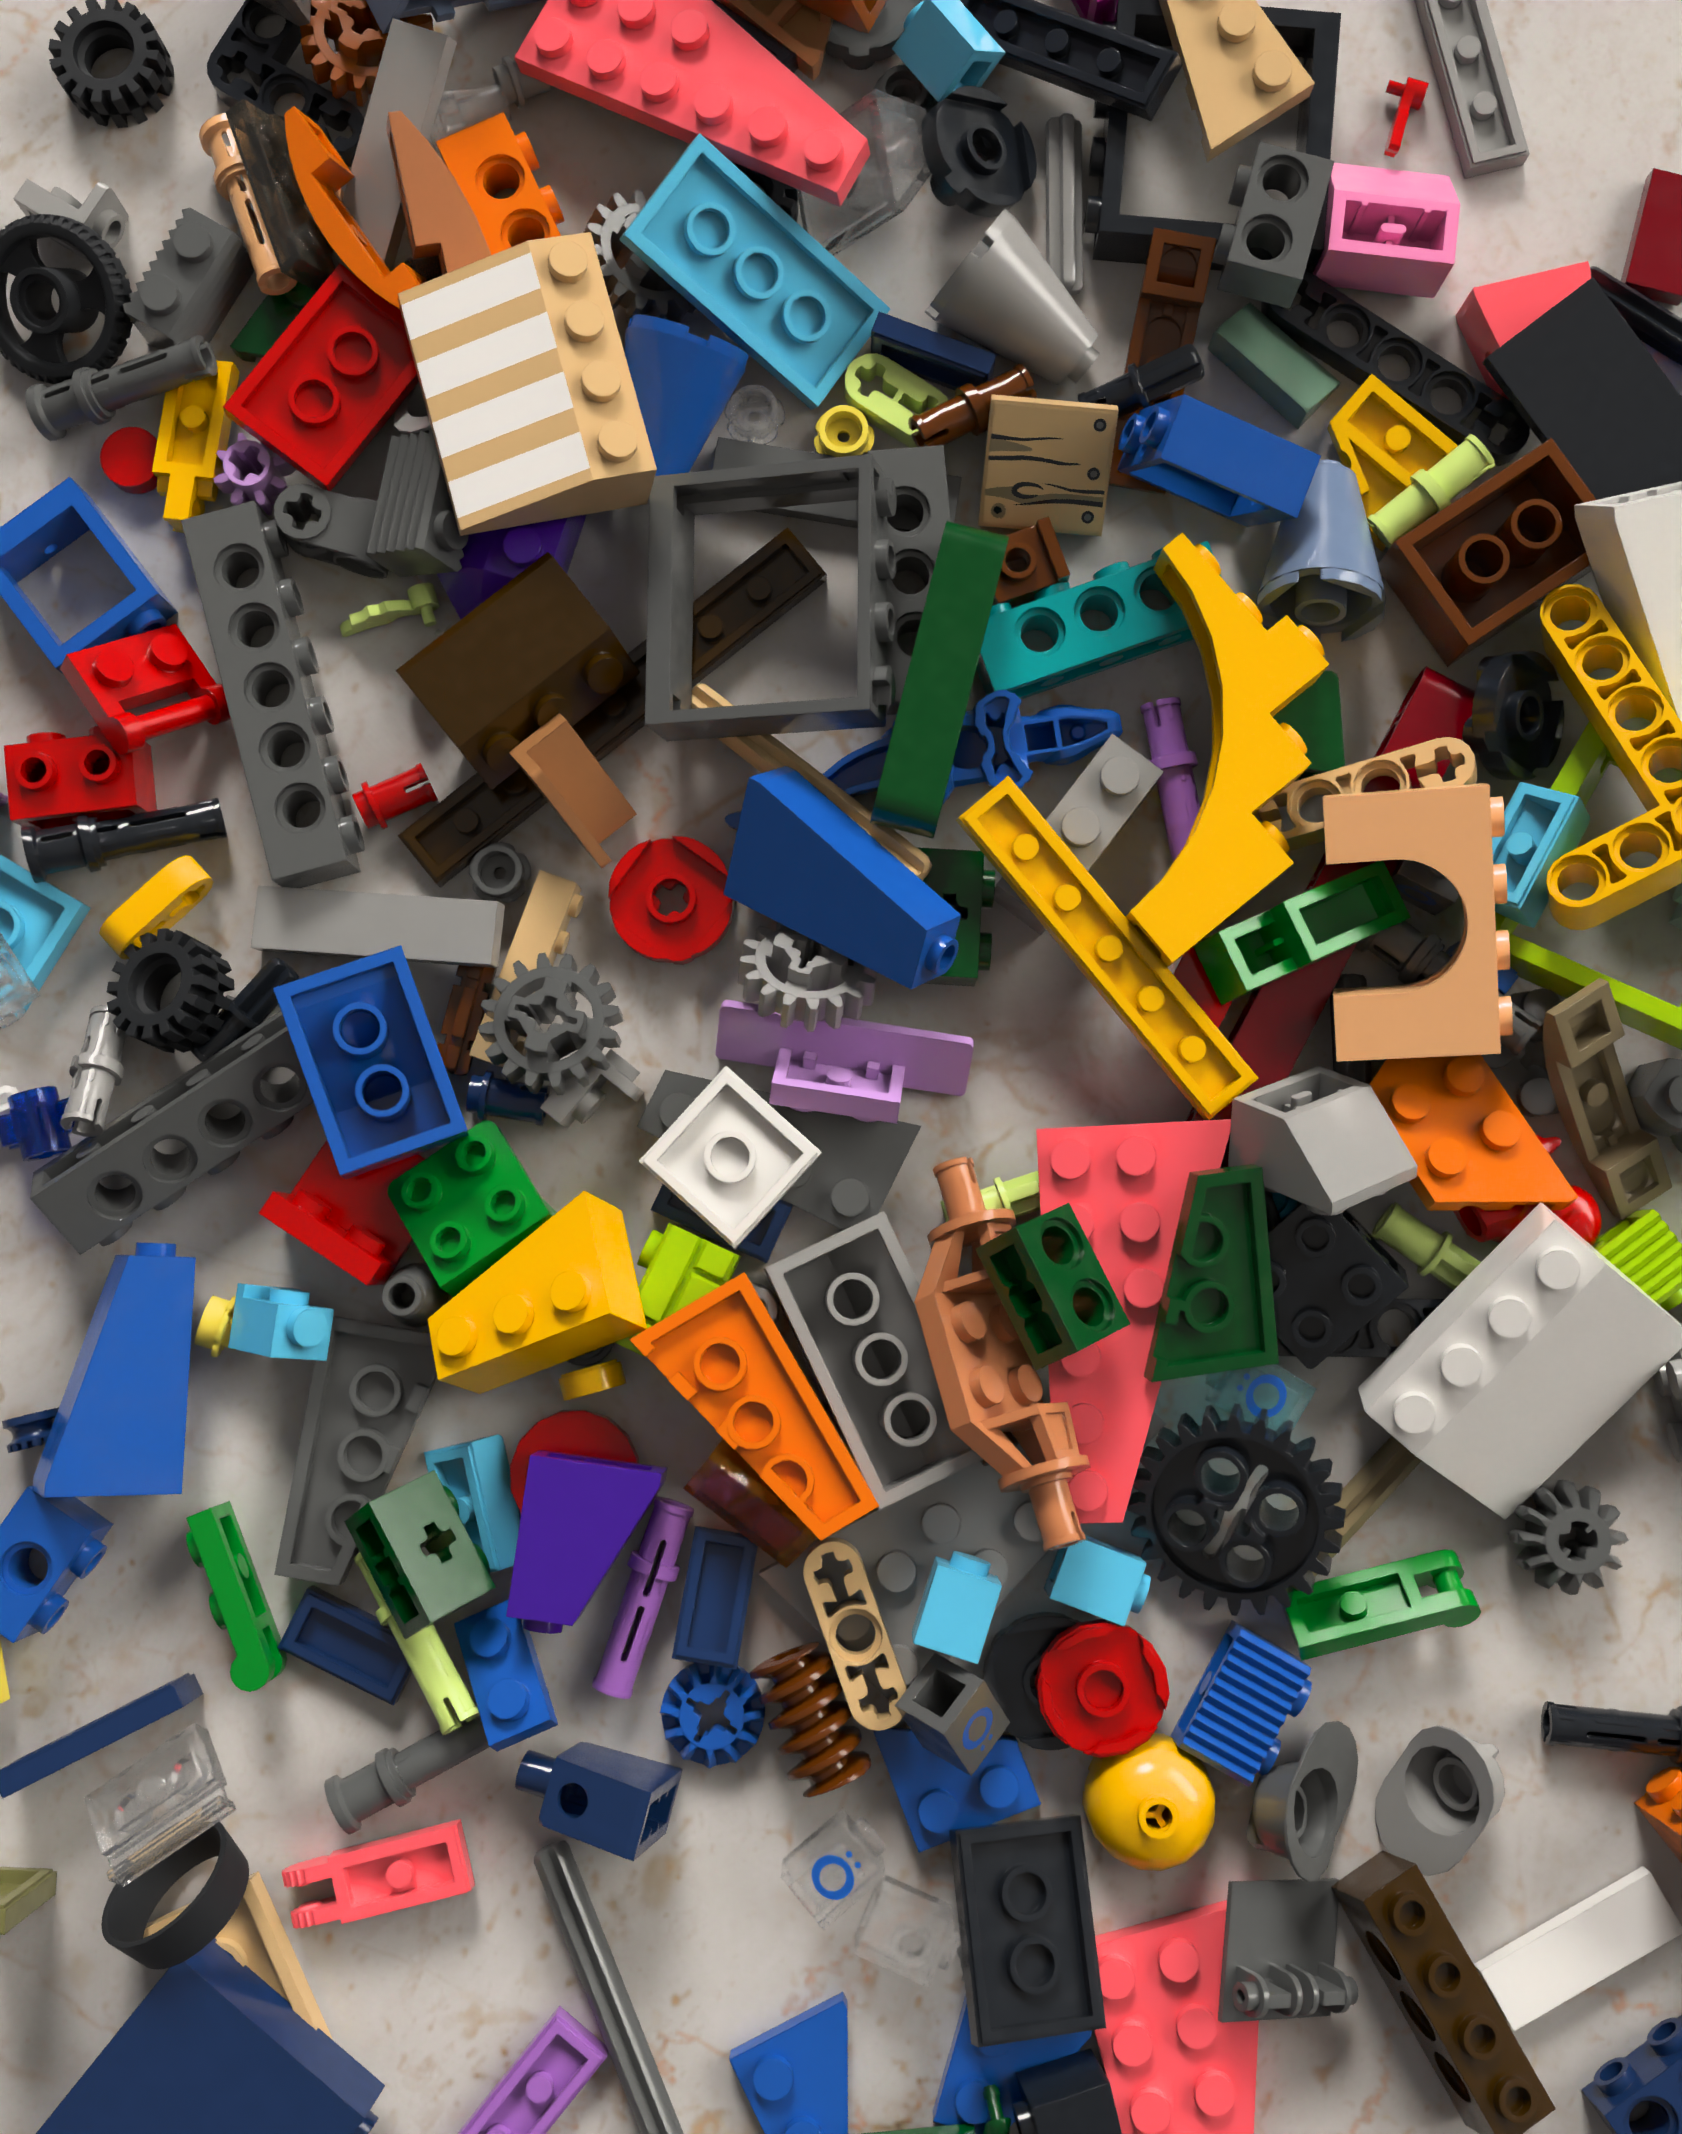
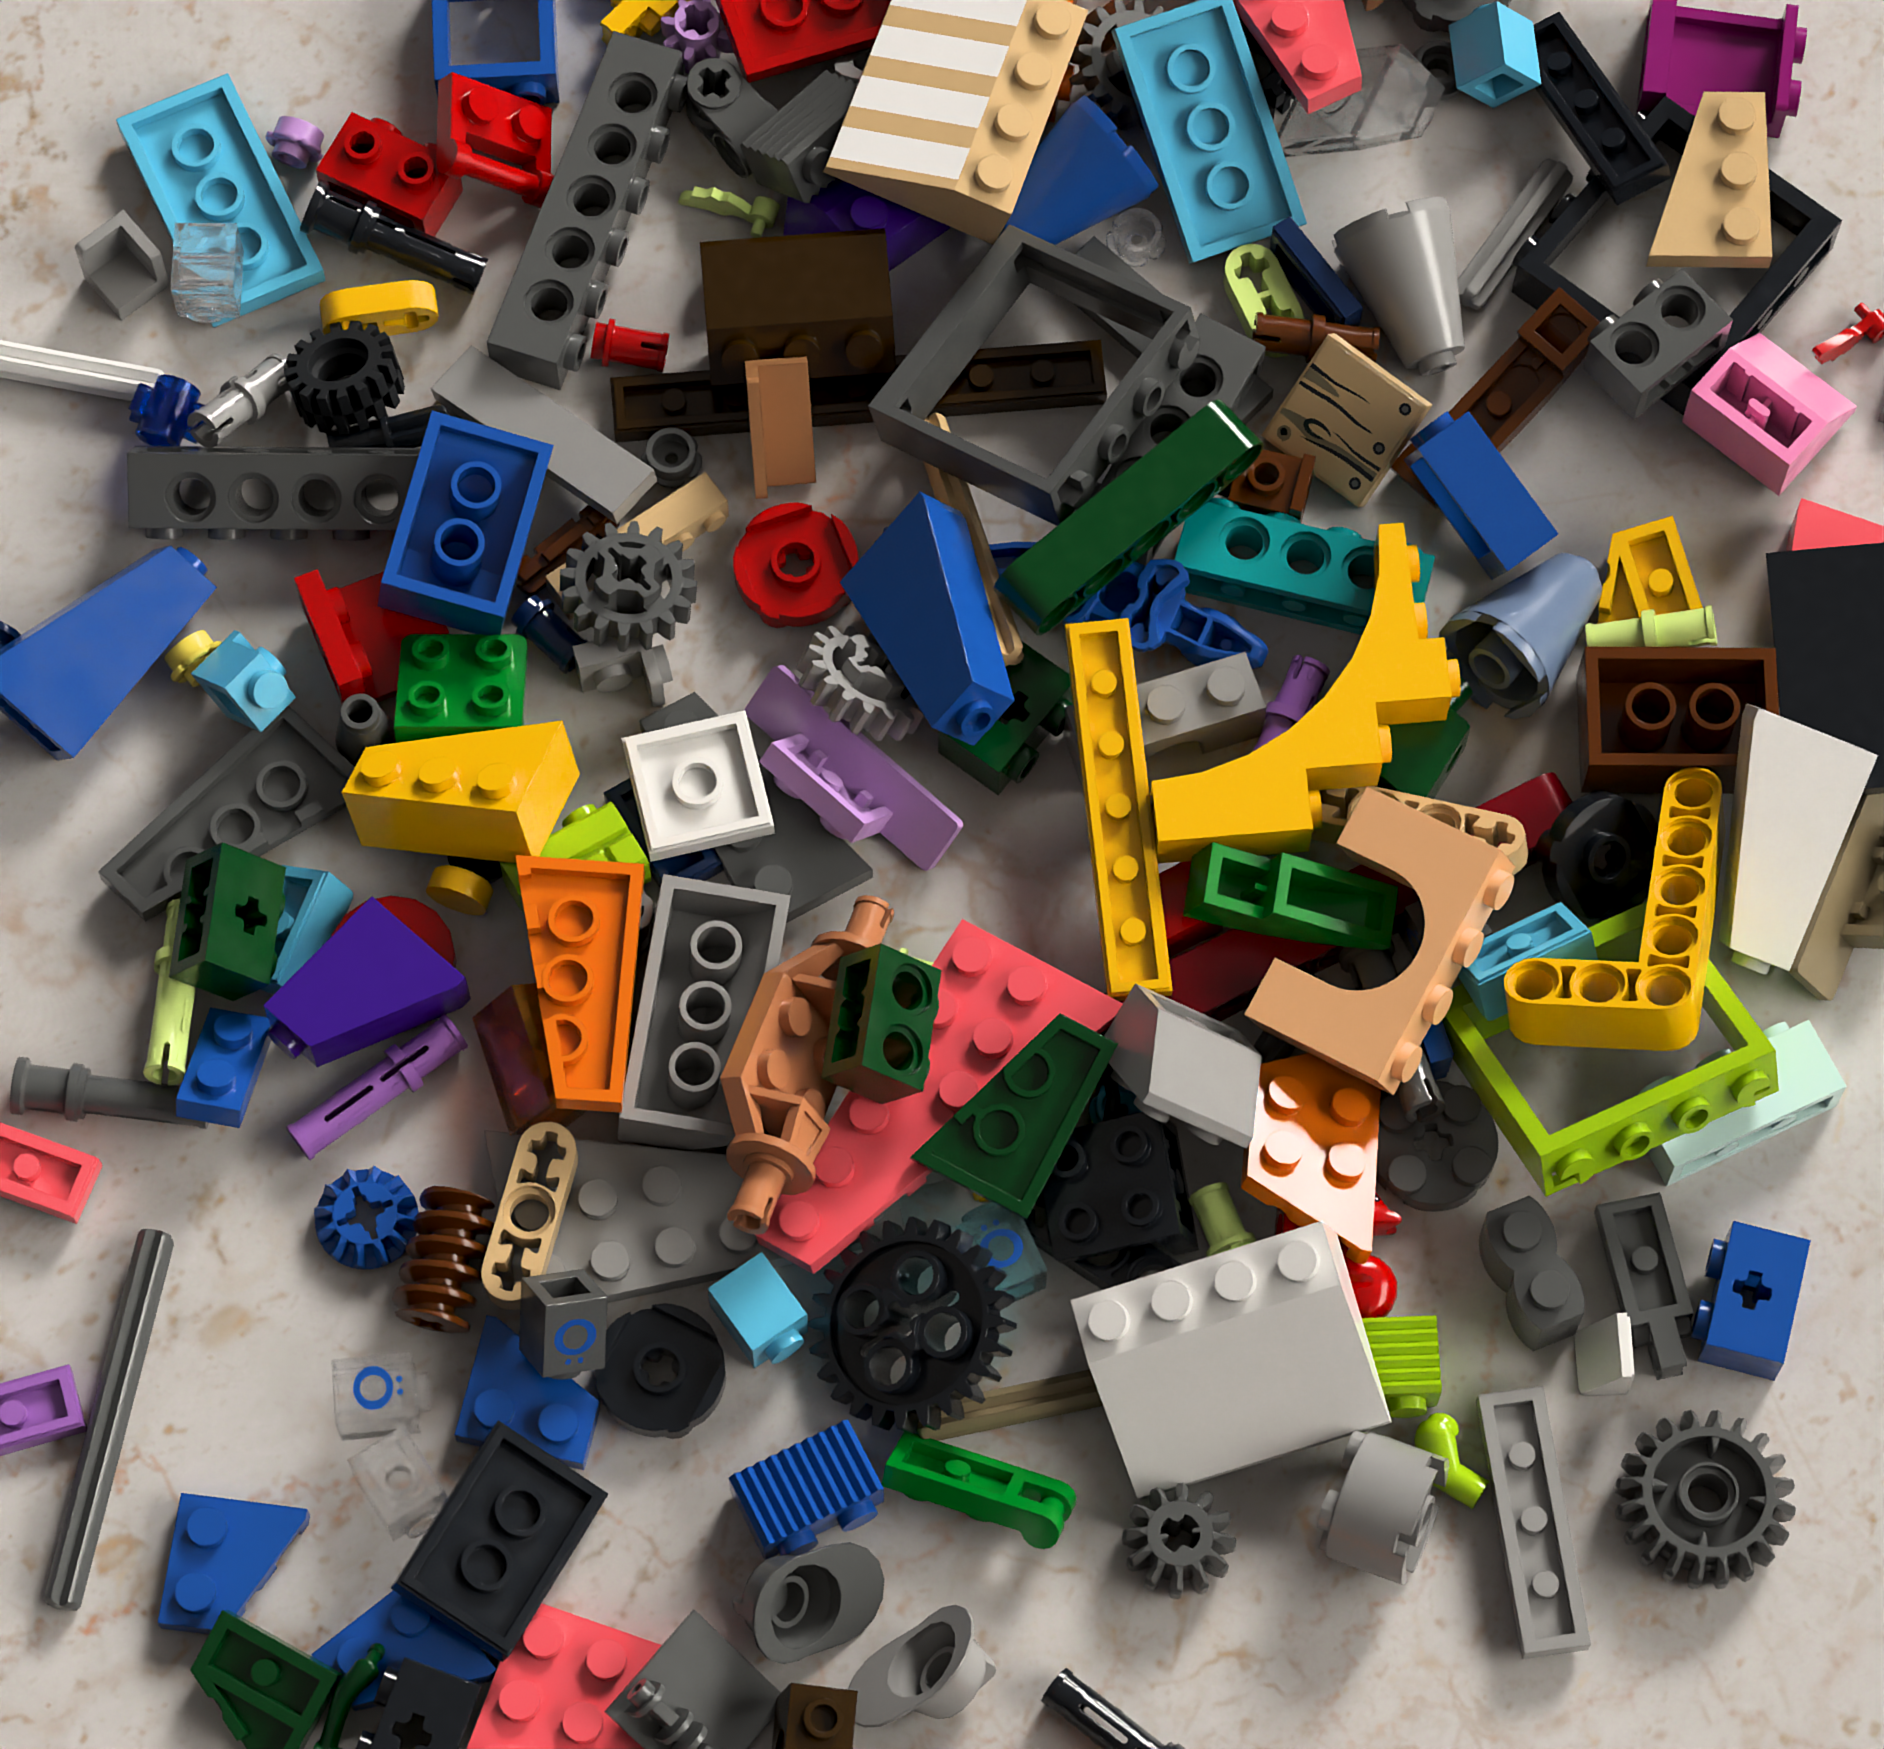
camera: 30 degrees right, 15 degrees down
(237, 1596) = (56, 871): green plate -> none
(347, 1645) = (113, 972): dark blue tile -> none
(602, 1796) = (237, 1209): dark blue torso -> none
(715, 1598) = (435, 1126): dark blue tile -> none
(843, 420) = (1204, 284): light yellow plate -> none
(957, 1606) = (627, 1241): medium azure brick -> none
(958, 174) = (1434, 151): black plate -> none
(1102, 1688) = (699, 1393): red tile -> none
(1125, 1788) = (674, 1551): yellow cylinder -> none
(1149, 382) = (1487, 407): black axle -> none
(1272, 364) = (1602, 463): sand green slope -> none
(1426, 367) = (1697, 500): black beam -> none
(1596, 1101) = (1453, 1196): dark tan slope -> none

